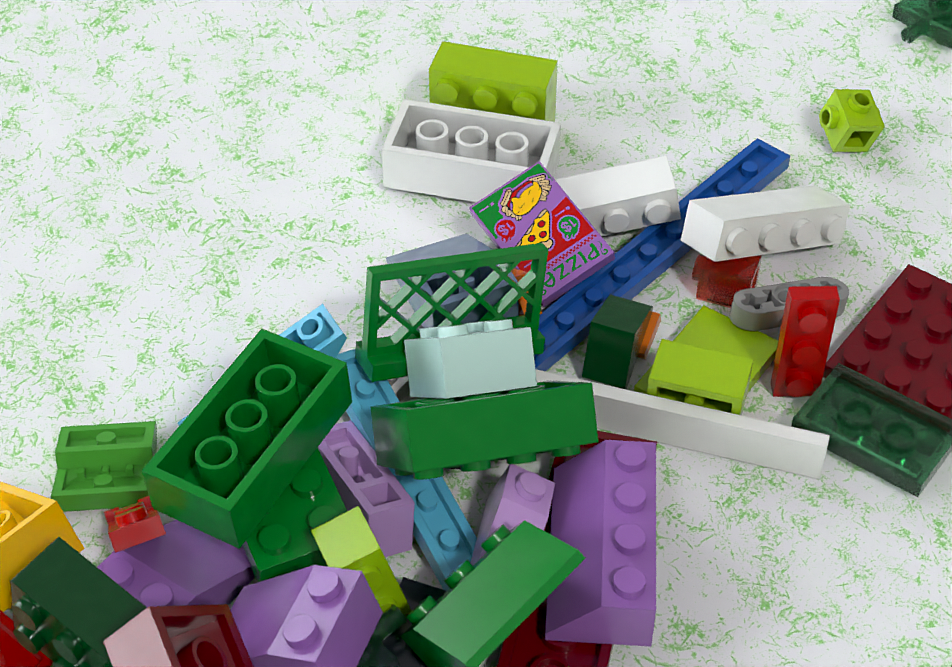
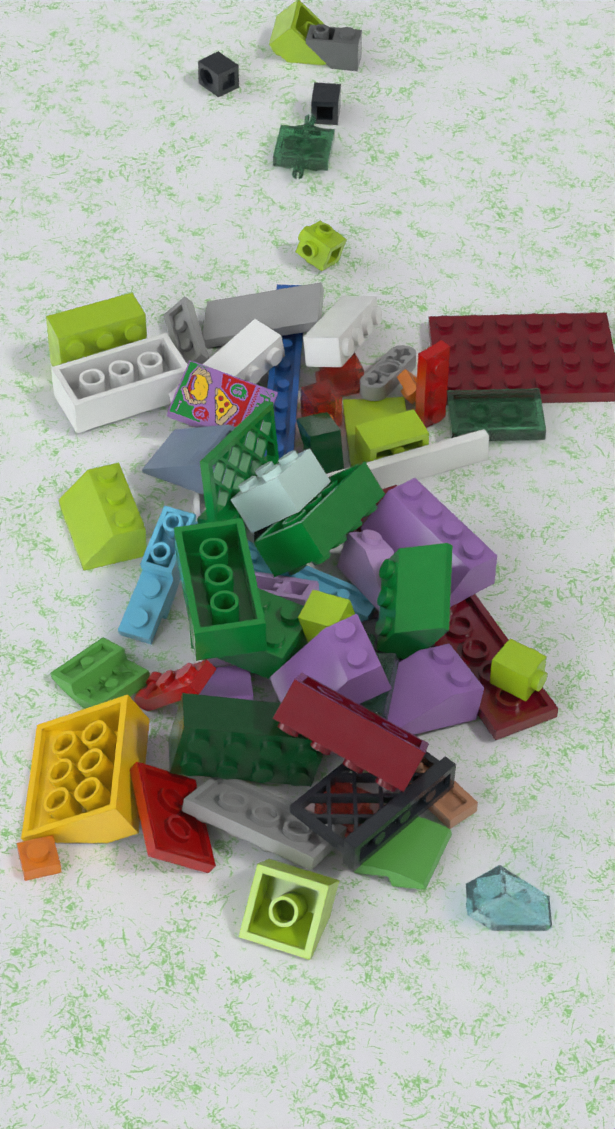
camera: 40 degrees left, 0 degrees up
(309, 273) = (103, 518): none -> lime slope
(602, 140) = (186, 331): none -> light grey plate
(668, 291) = (321, 398): none -> clear red brick
(710, 162) = (282, 310): none -> light grey tile

